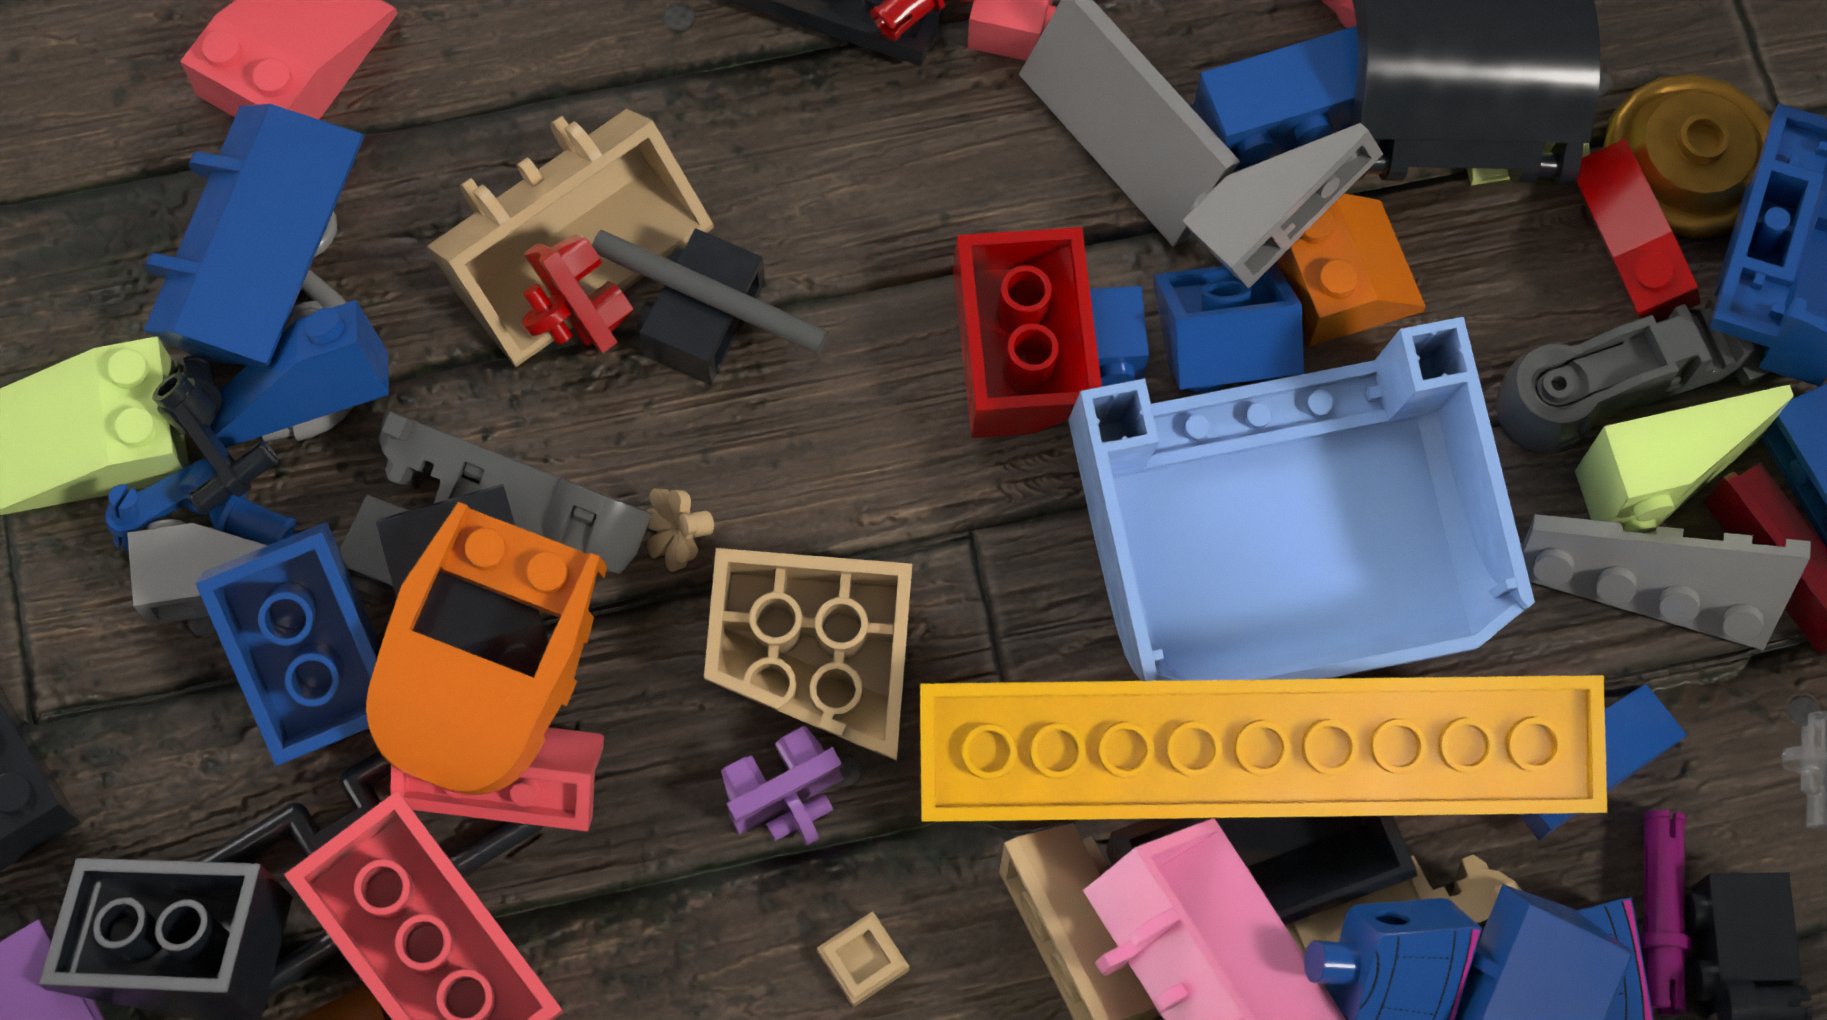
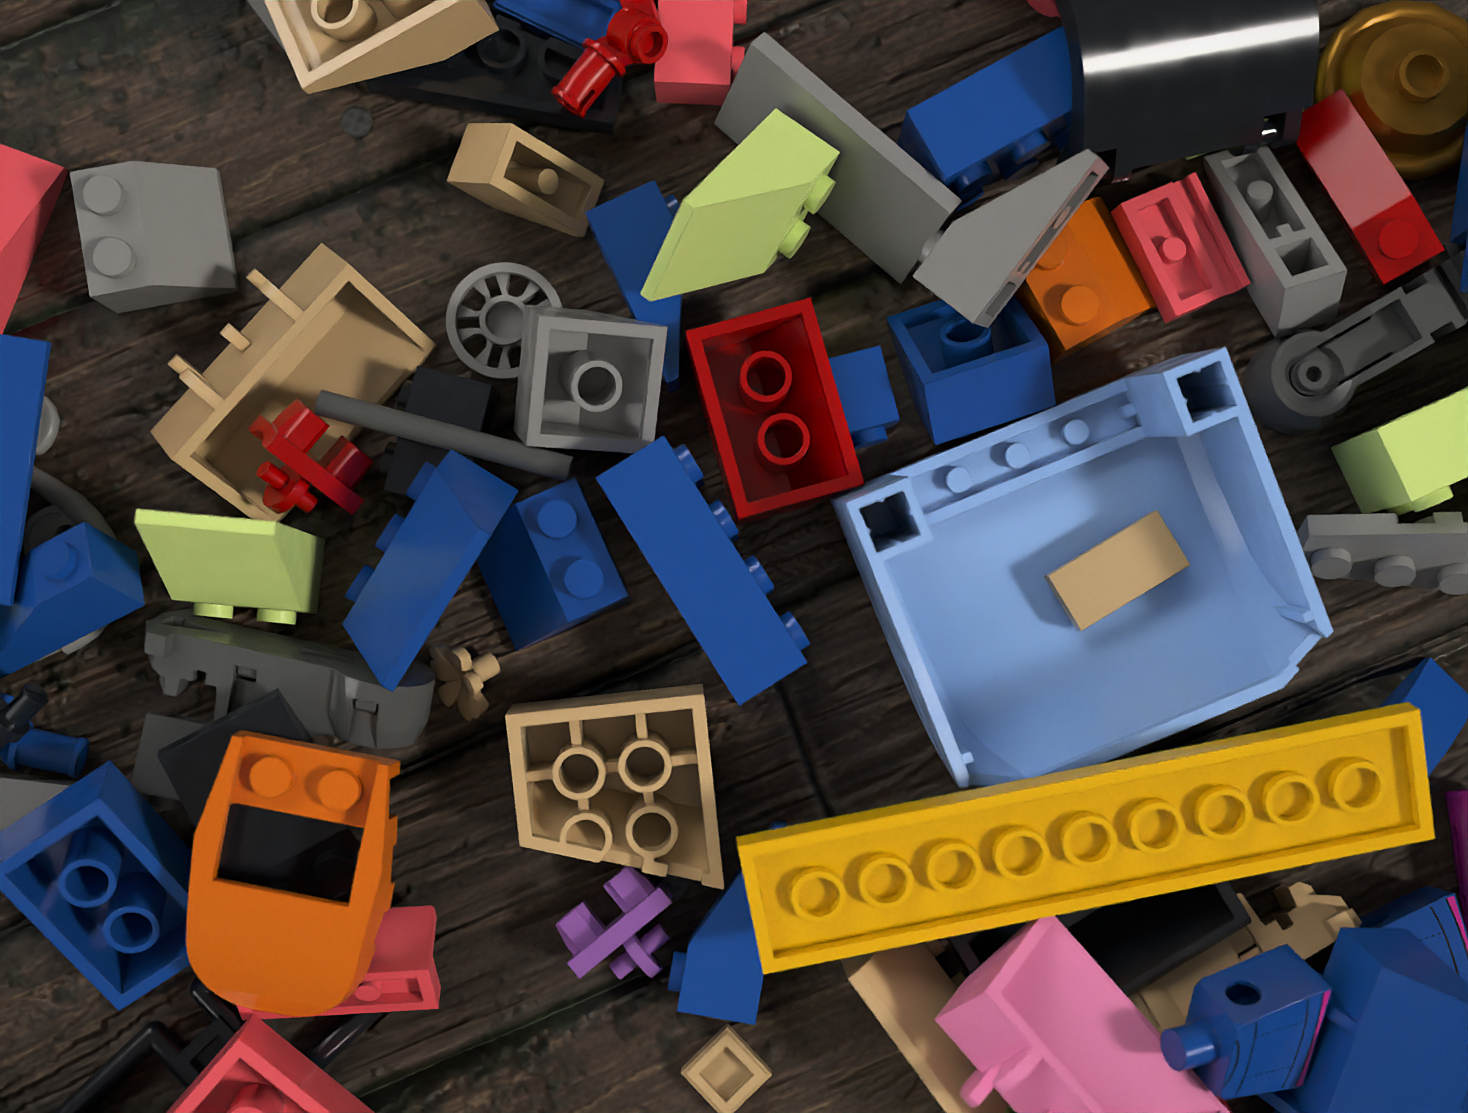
camera: 10 degrees left, 15 degrees up
(469, 77) = (153, 234): none -> light grey slope
(486, 365) = (234, 564): none -> yellowish green slope
(667, 399) = (423, 562): none -> blue slope
(782, 436) = (550, 565): none -> blue slope
(785, 213) = (499, 318): none -> light grey wheel
(830, 87) = (524, 177): none -> tan slope
(856, 268) = (588, 380): none -> light grey slope
(881, 838) = (722, 963): none -> blue slope
(929, 173) = (630, 237): none -> blue slope
(933, 460) = (702, 570): none -> blue brick
(1032, 139) = (745, 210): none -> yellowish green slope
(1340, 539) = (1117, 570): none -> tan tile
(1450, 257) = (1180, 247): none -> coral plate
(1543, 264) = (1277, 240): none -> light grey slope

